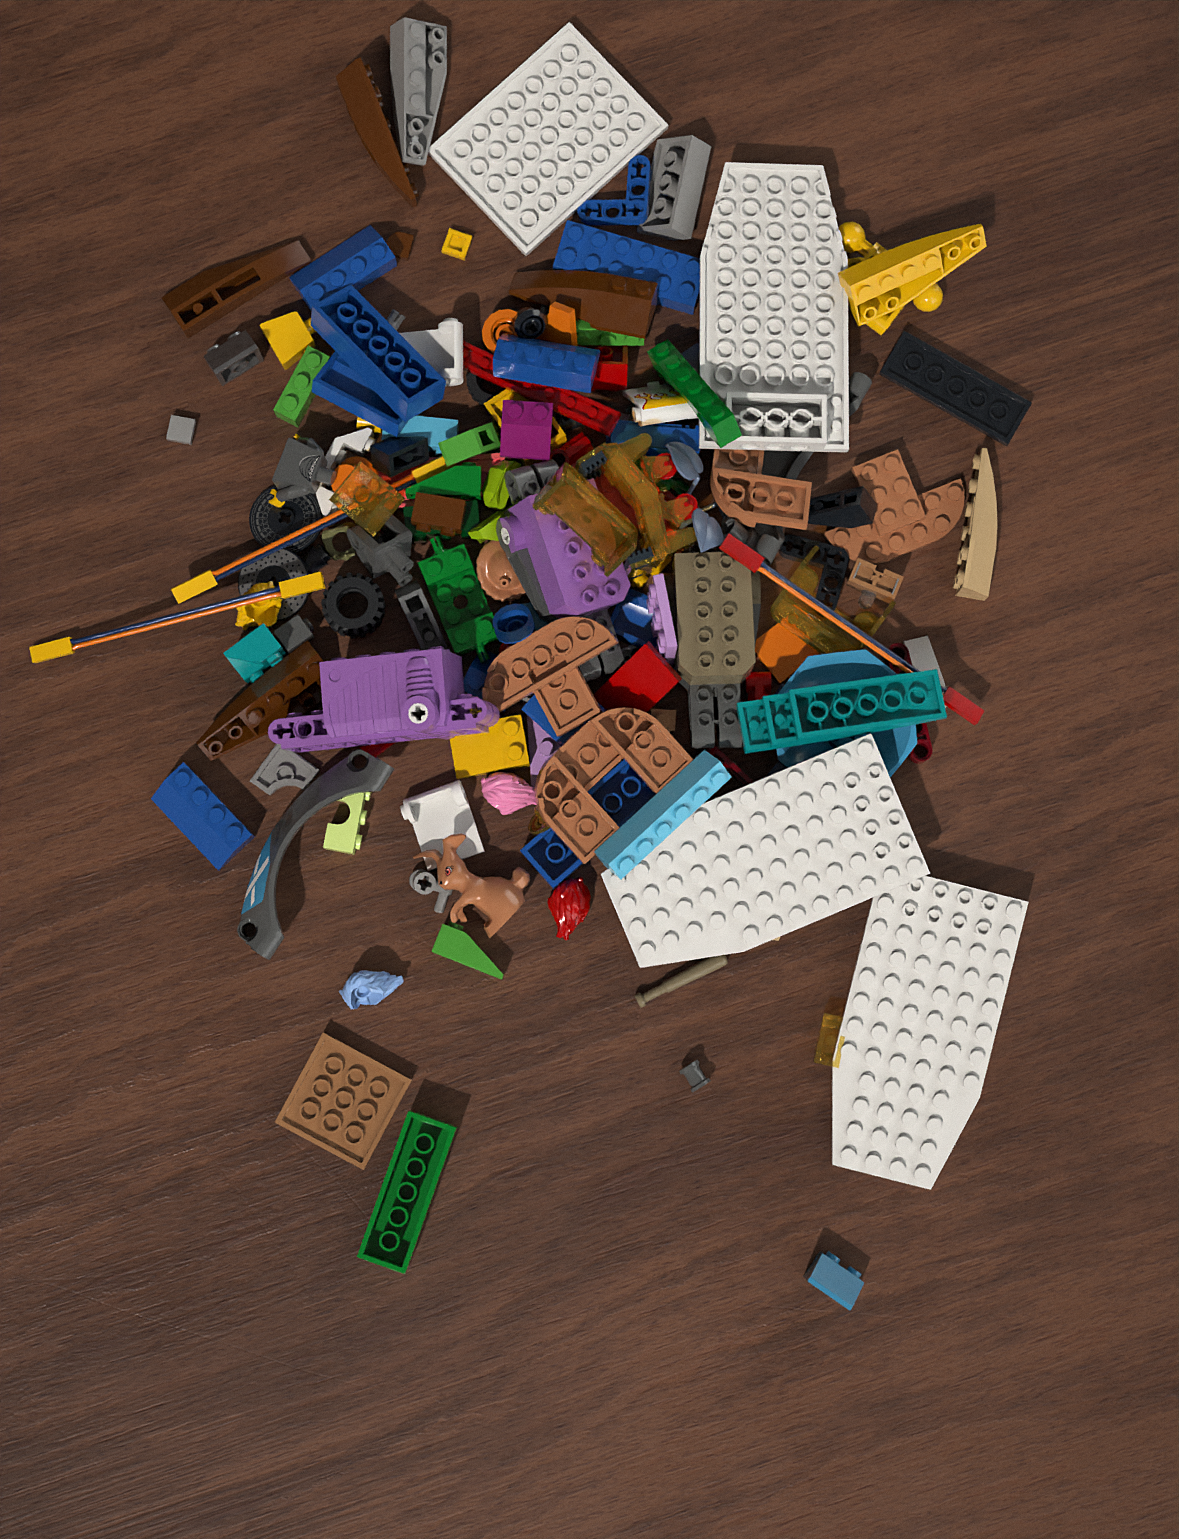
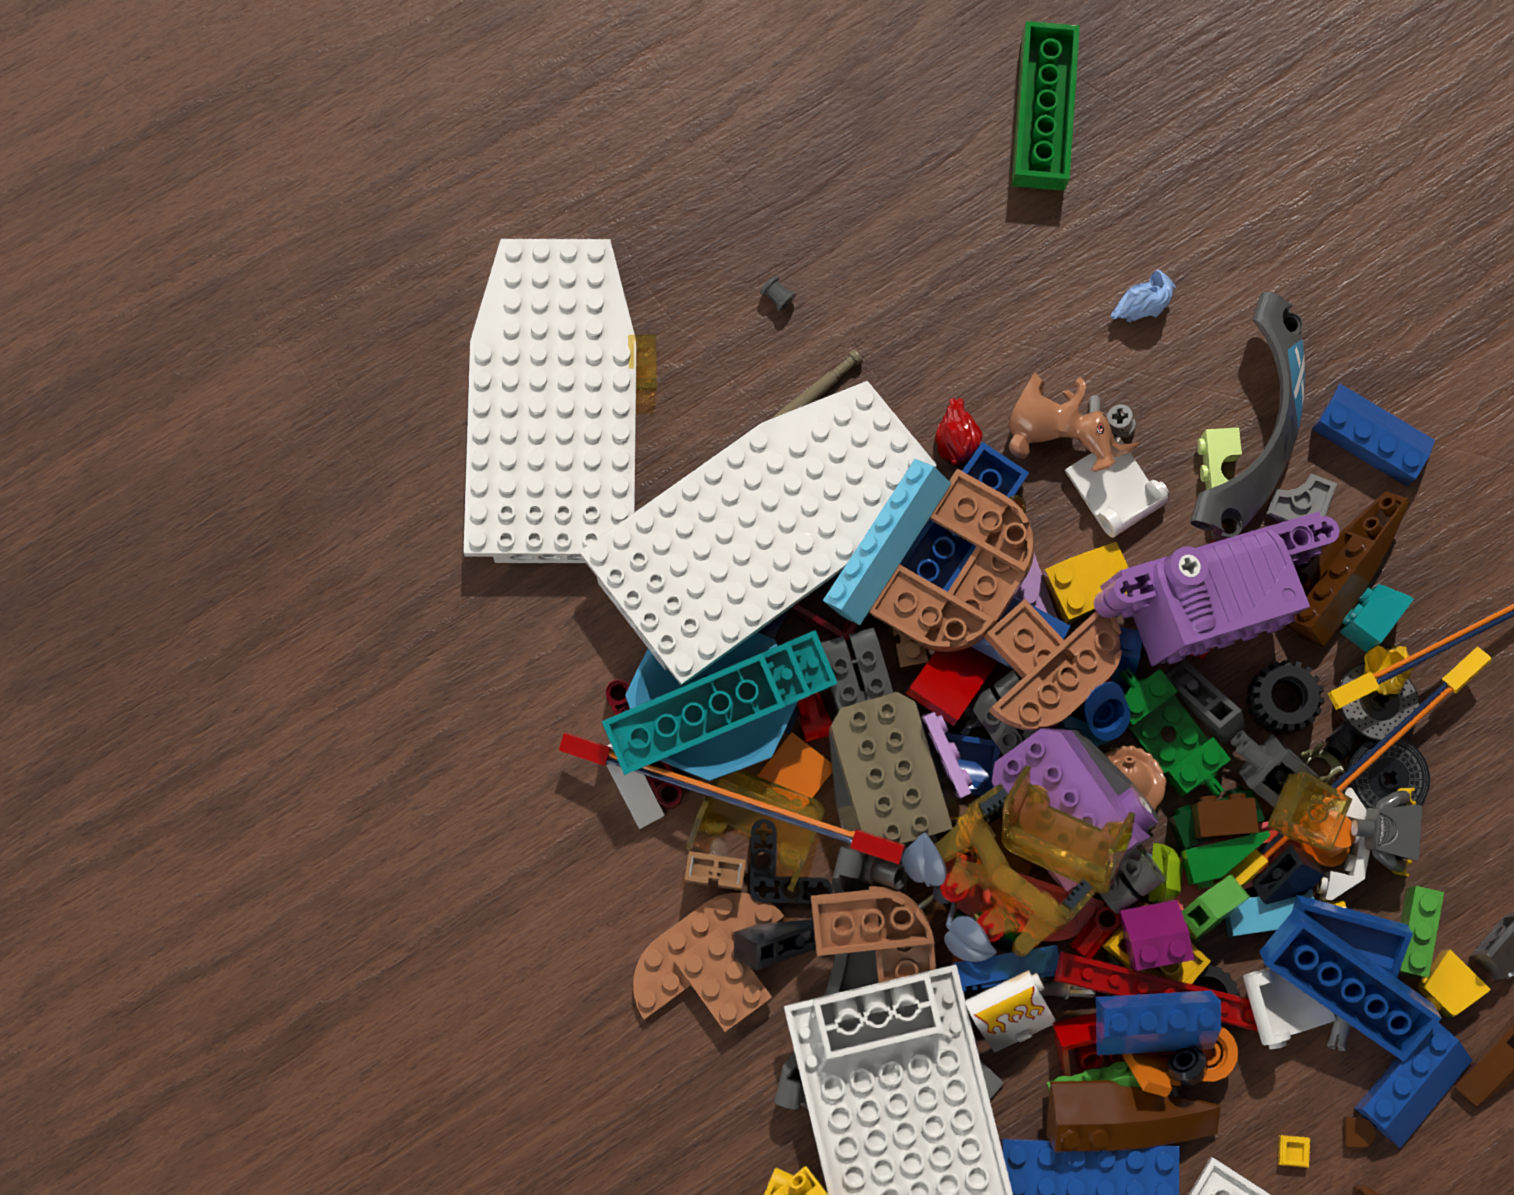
camera: 165 degrees right, 5 degrees down
(295, 633) = (1338, 651): dark grey brick -> none
(343, 1101) = (1137, 181): medium nougat plate -> none
(459, 947) = (1055, 361): bright green slope -> none
(487, 529) = (1167, 812): lime slope -> none
(507, 792) = (1060, 538): bright pink hair -> none
(701, 398) = (972, 1016): green arch -> none
(834, 1280) = (581, 121): dark azure slope -> none
(955, 388) = (674, 1125): black plate -> none
(979, 535) = (607, 957): tan wedge -> none

